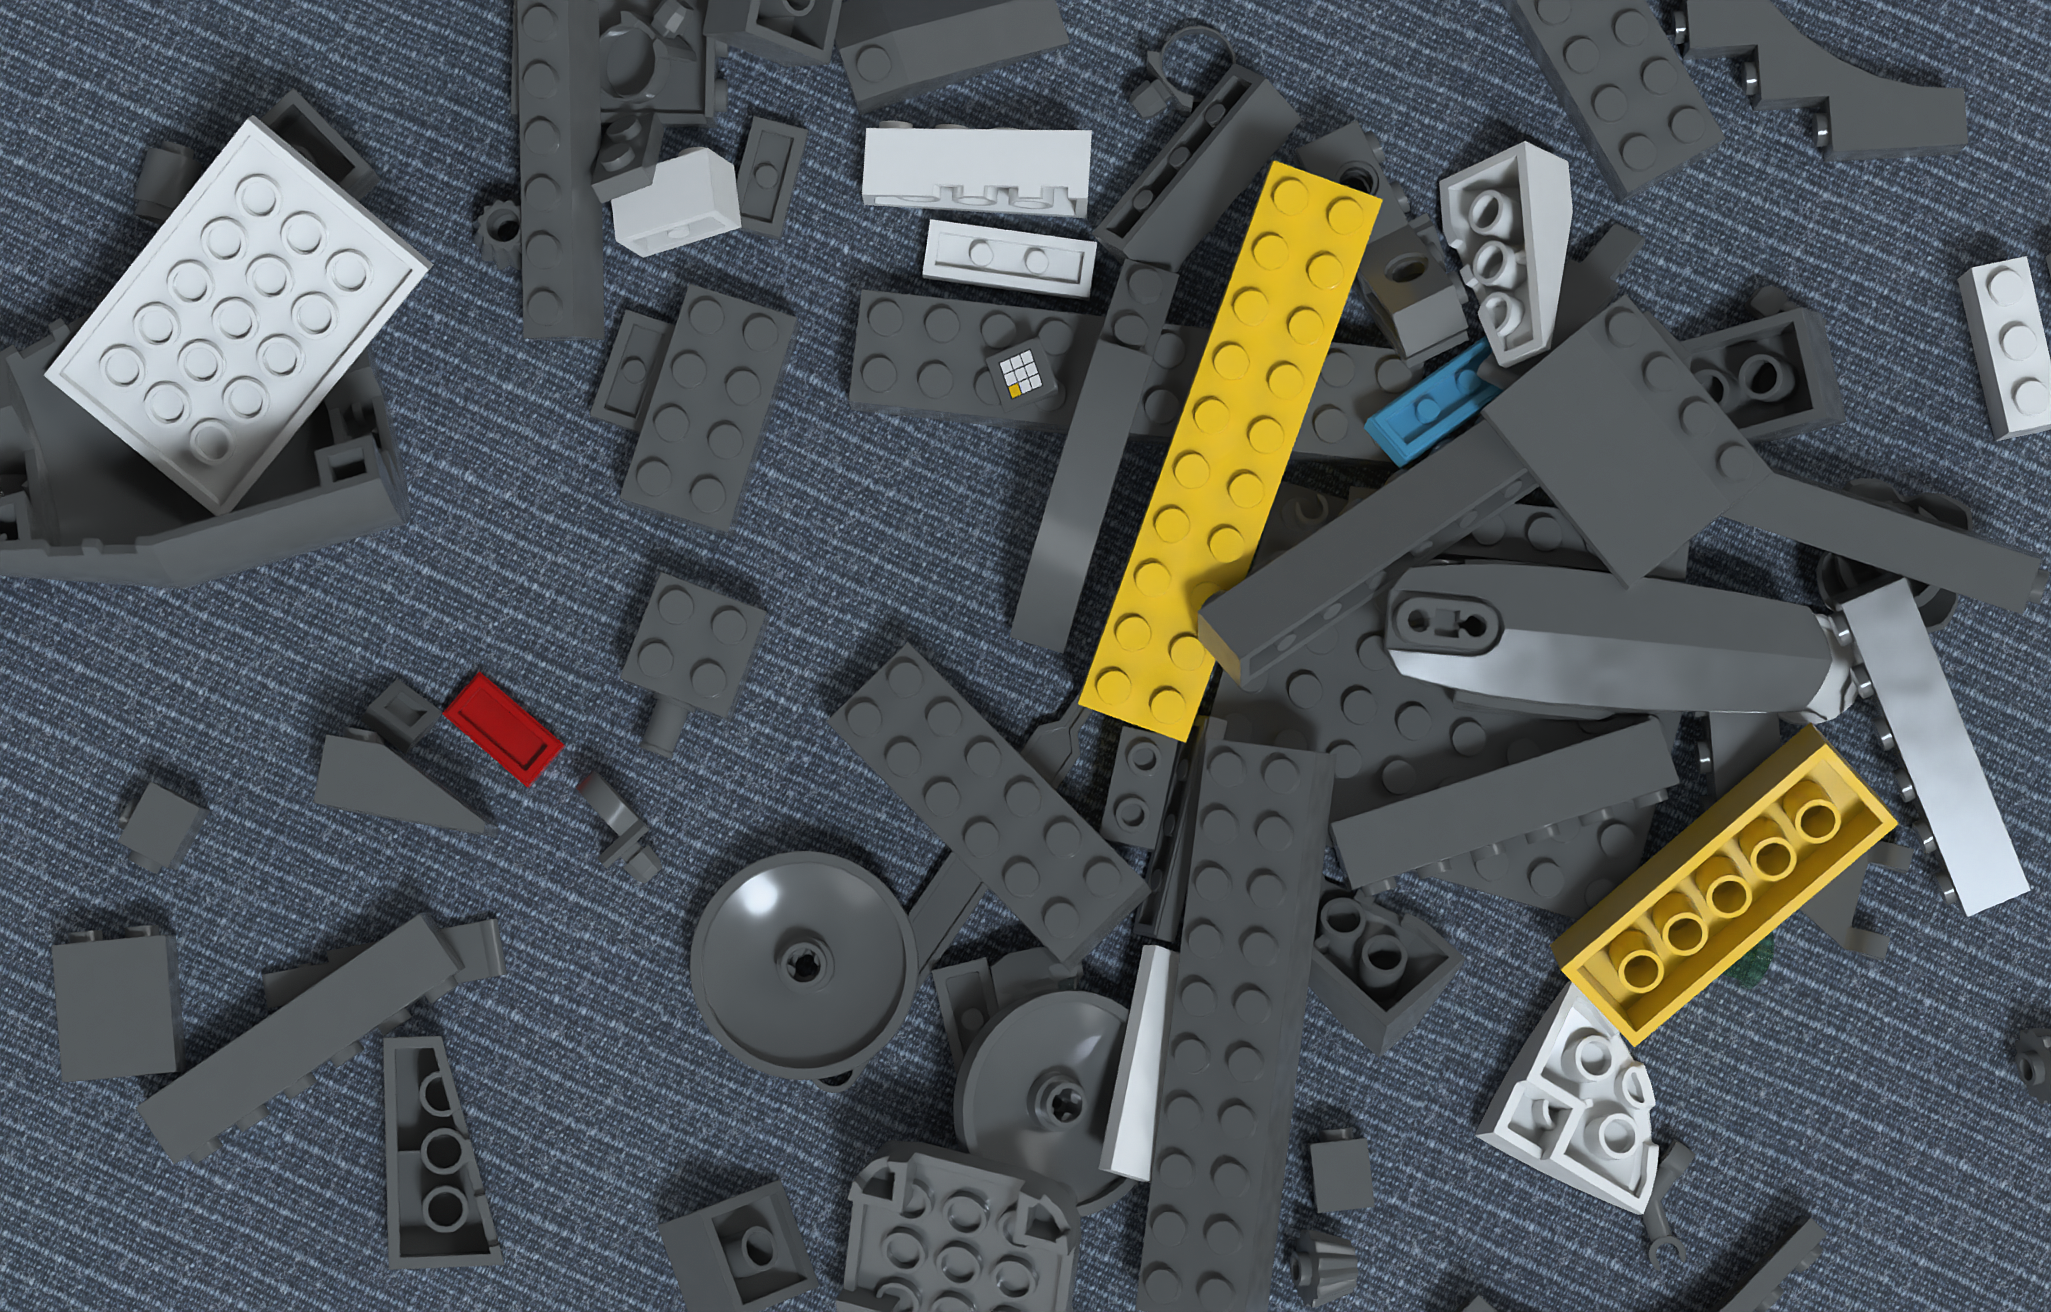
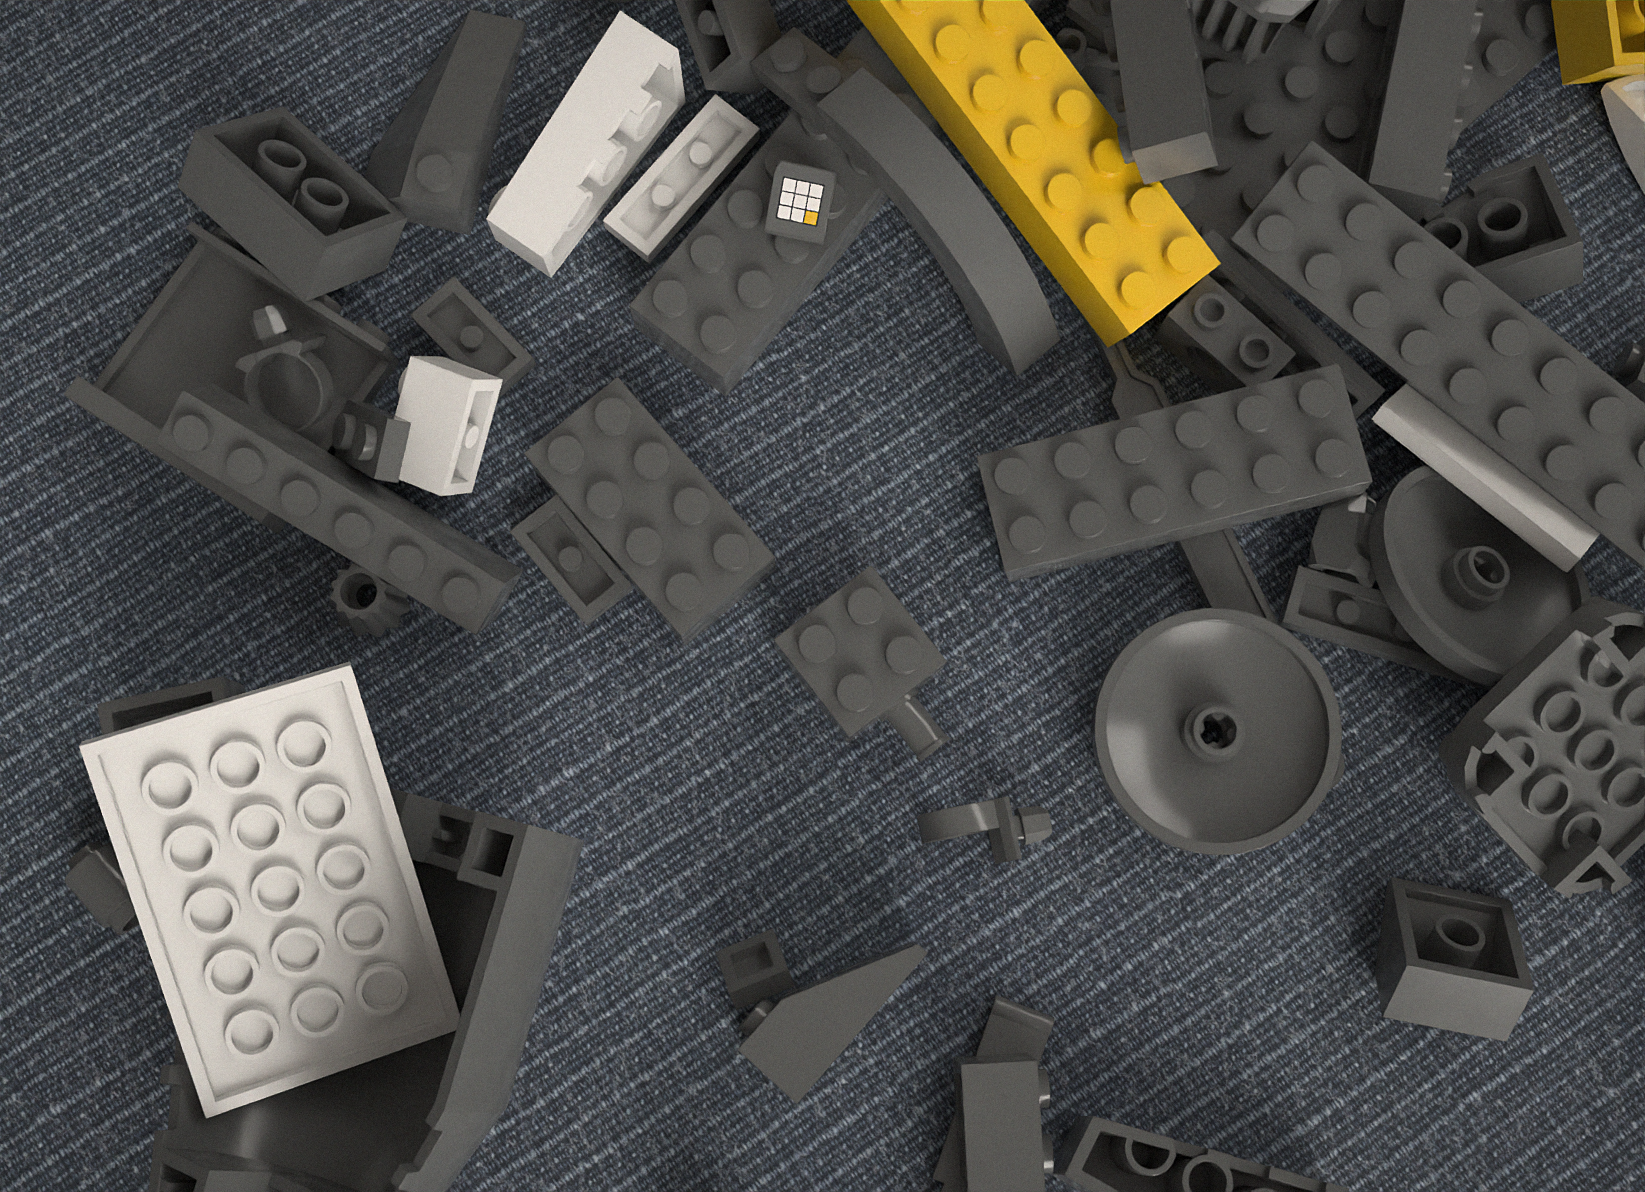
camera: 65 degrees left, 5 degrees down
(504, 729) = (824, 880): red tile -> none

